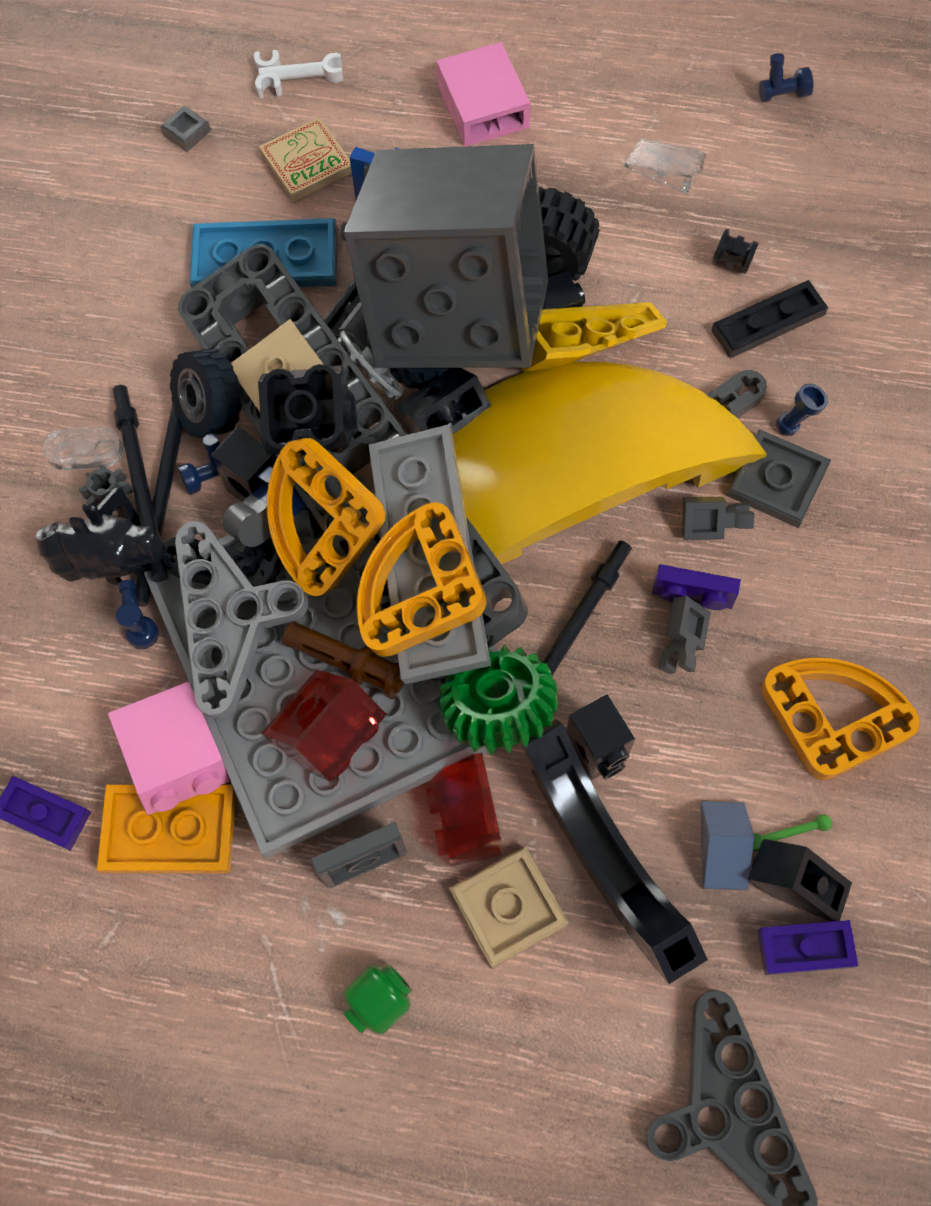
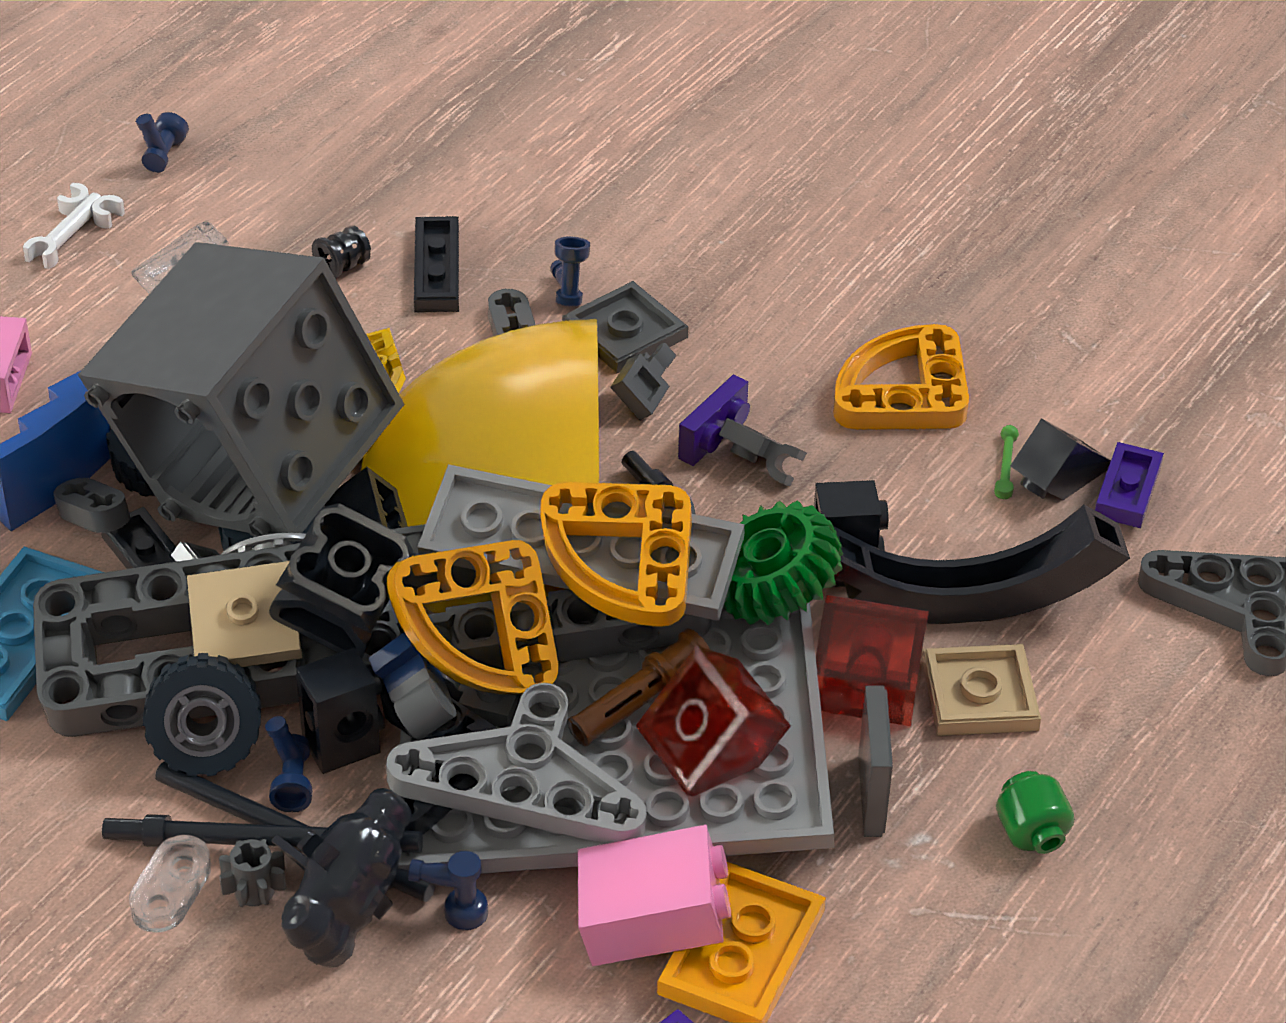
camera: 70 degrees left, 25 degrees down
(688, 79) = (78, 212): none -> white bar
(725, 845) = (999, 501): sand blue slope -> none

